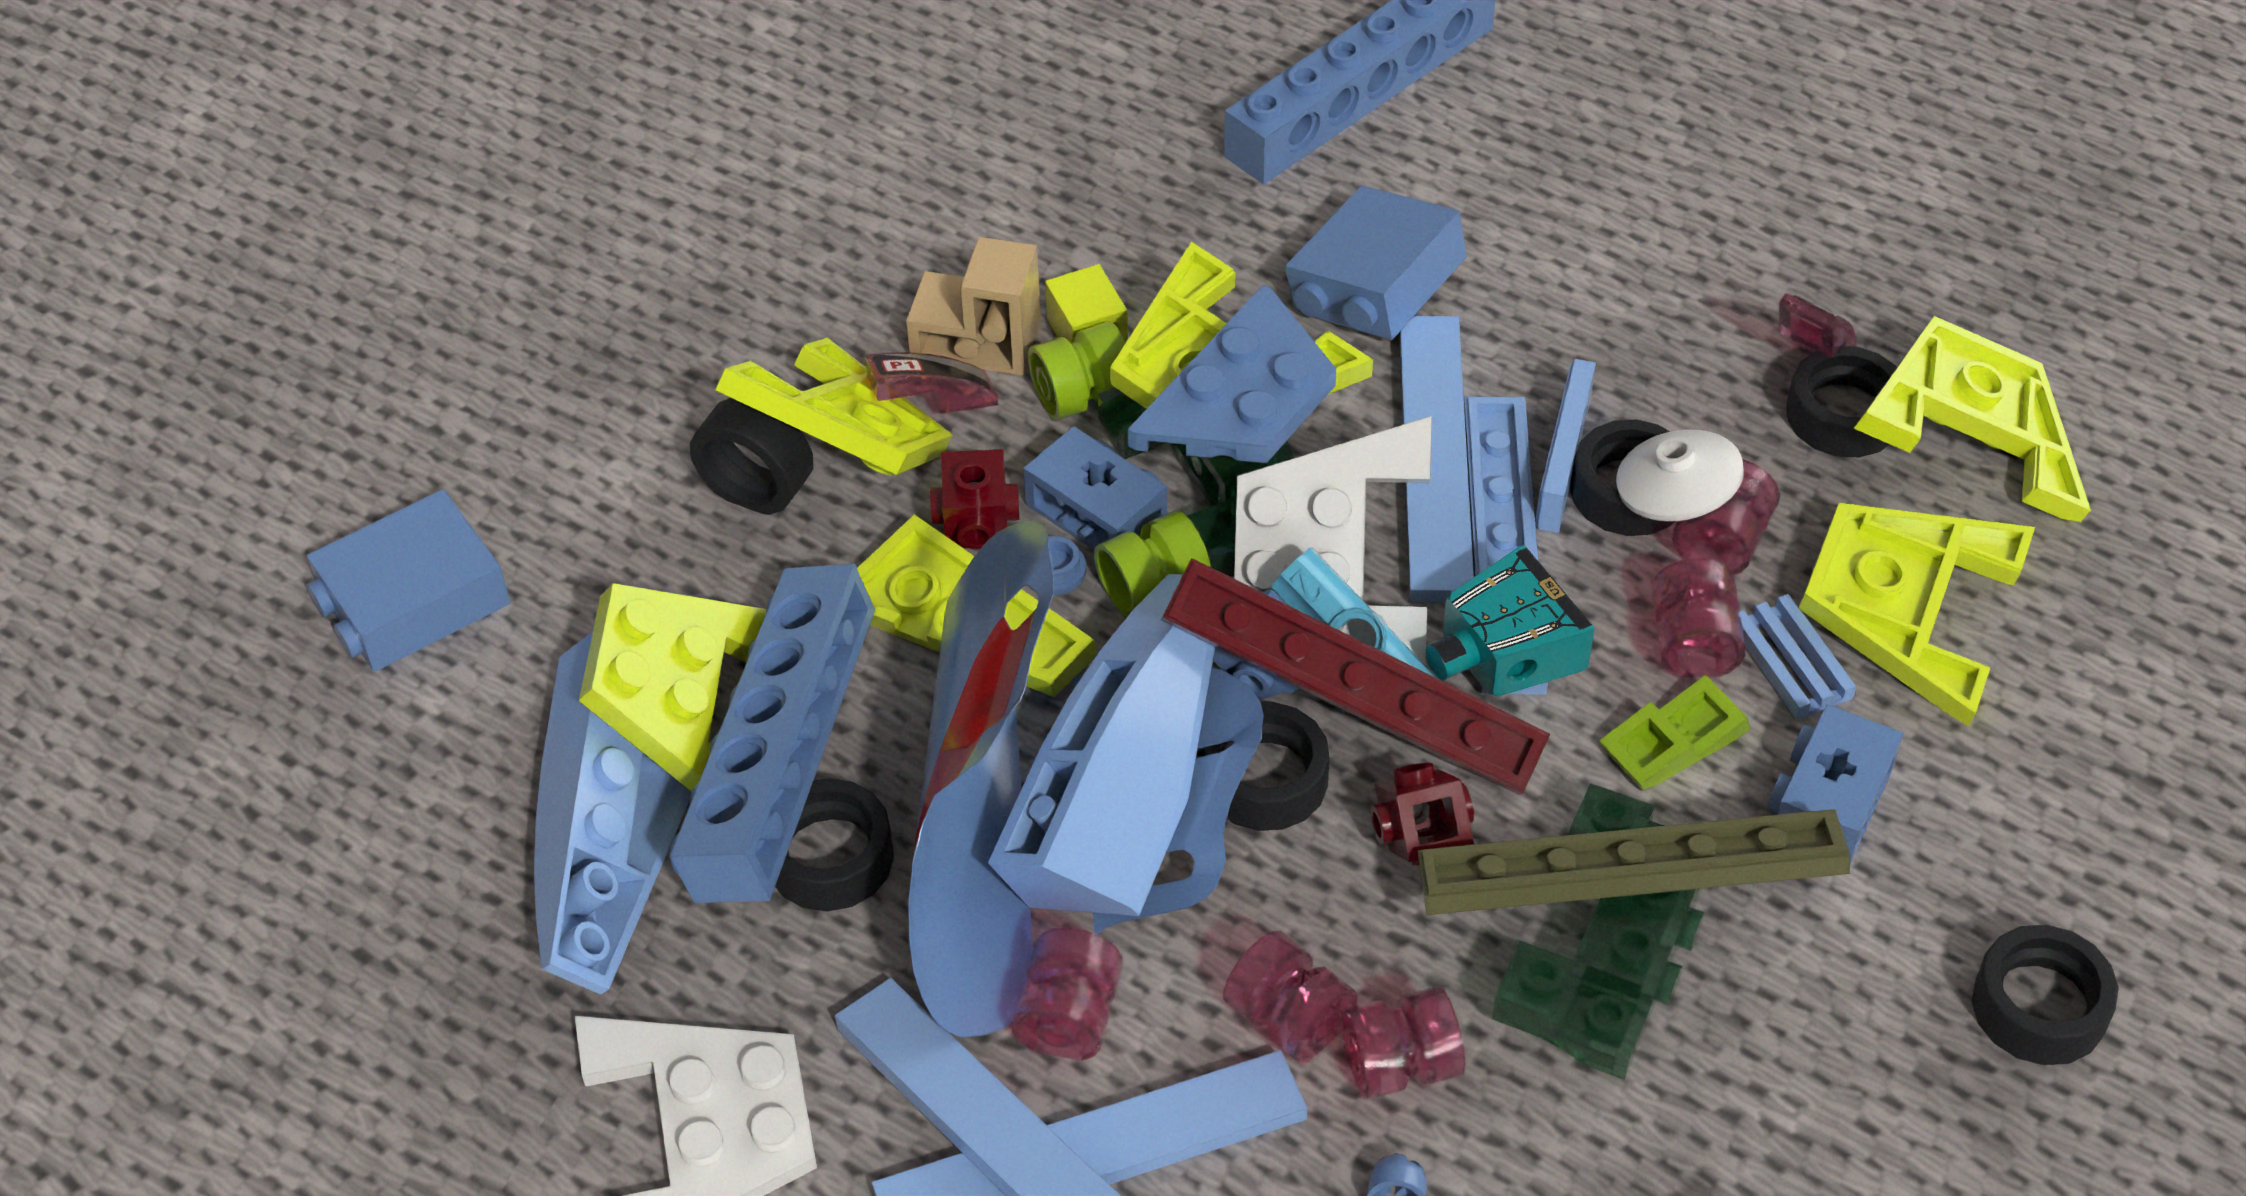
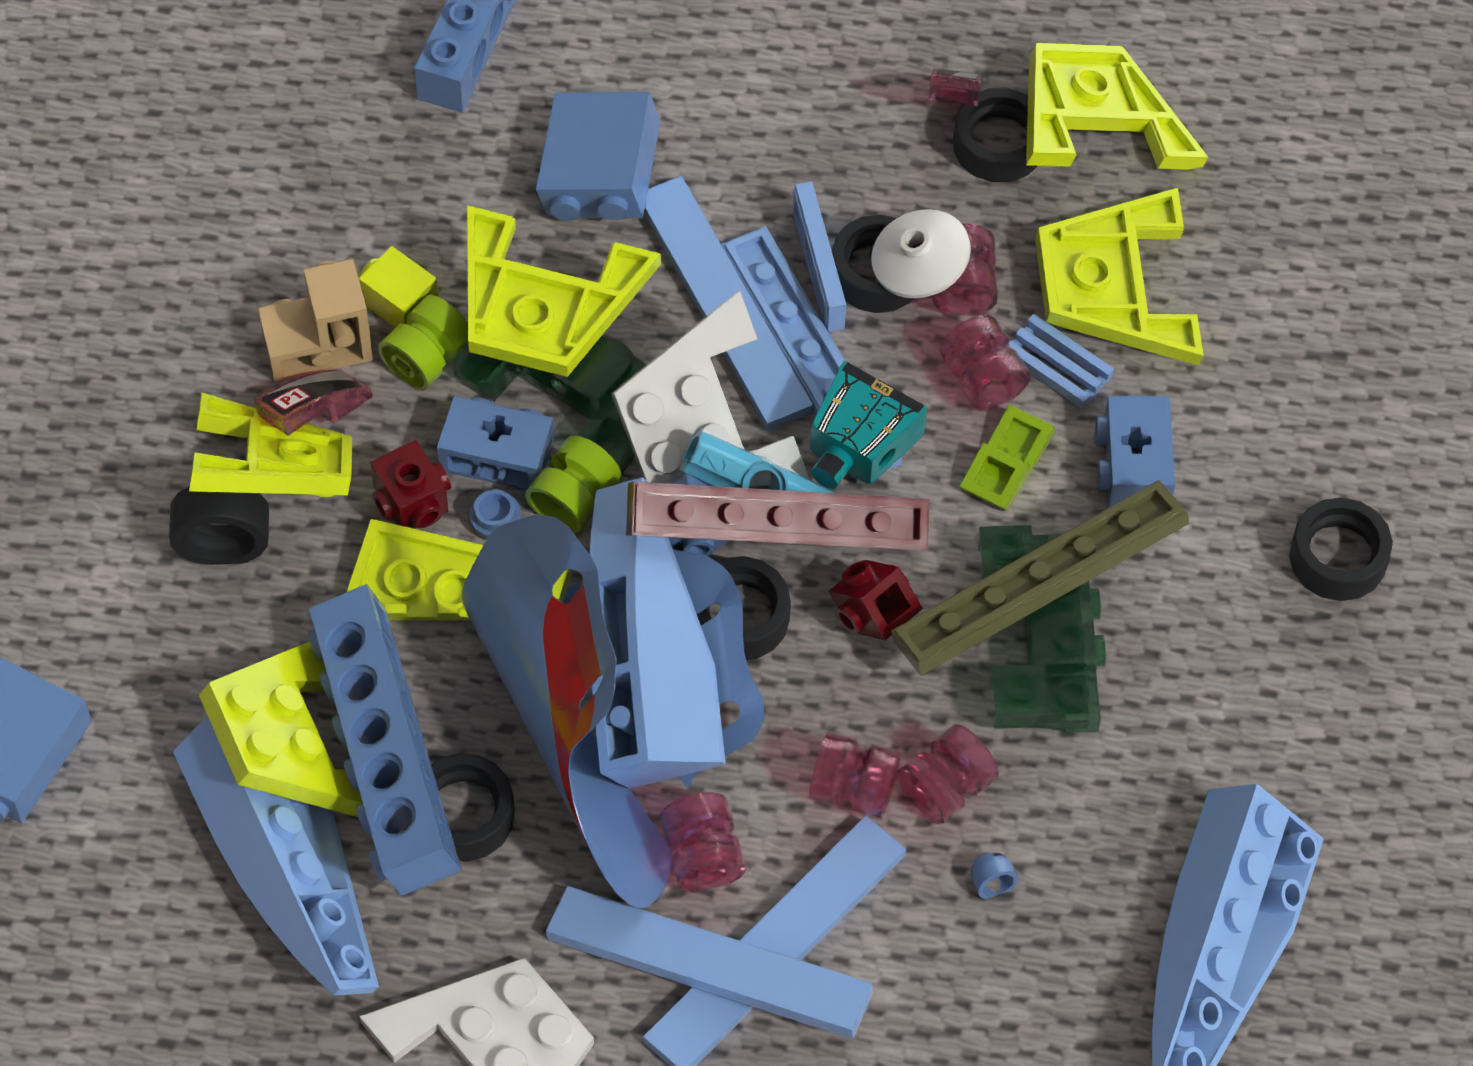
camera: 30 degrees left, 10 degrees up
(1242, 388) = (581, 319): medium blue wing -> none

